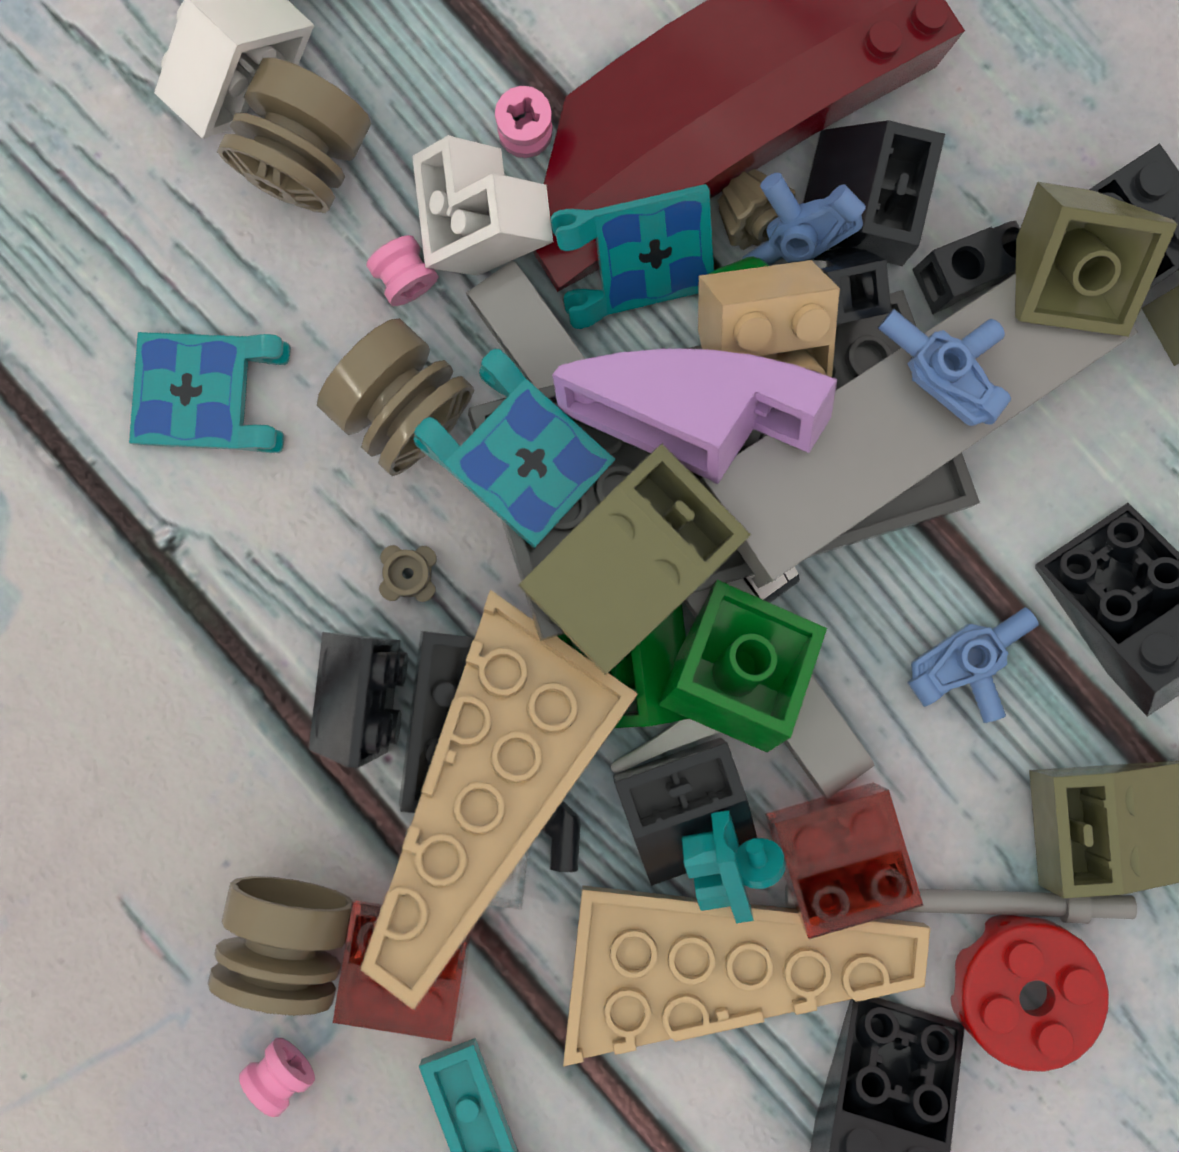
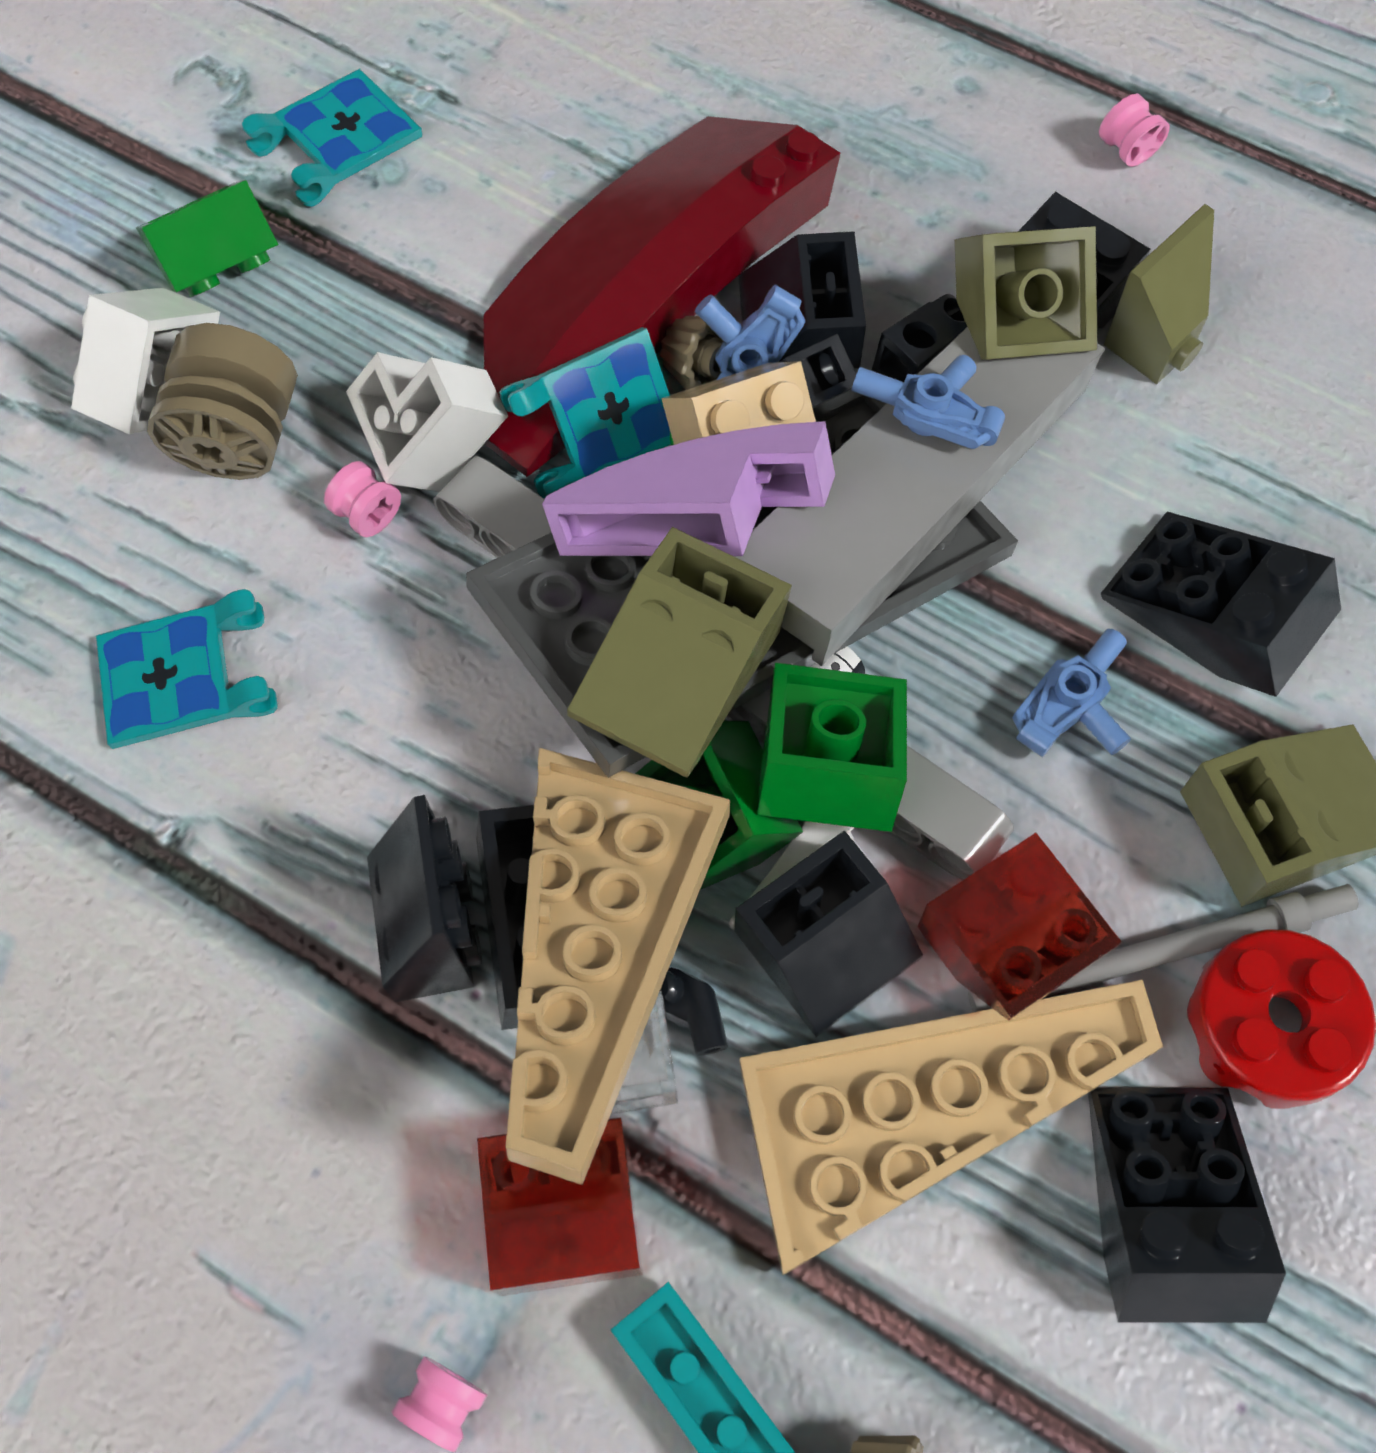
camera: 15 degrees left, 20 degrees down
(280, 946) = (405, 1218): dark tan wheel -> none
(384, 388) = (385, 604): dark tan wheel -> none
(395, 584) = (452, 769): dark tan plate -> none
(524, 458) = (532, 600): teal flag -> none
(525, 136) = (454, 324): bright pink wheel -> none
(724, 867) = (919, 954): teal hips -> none

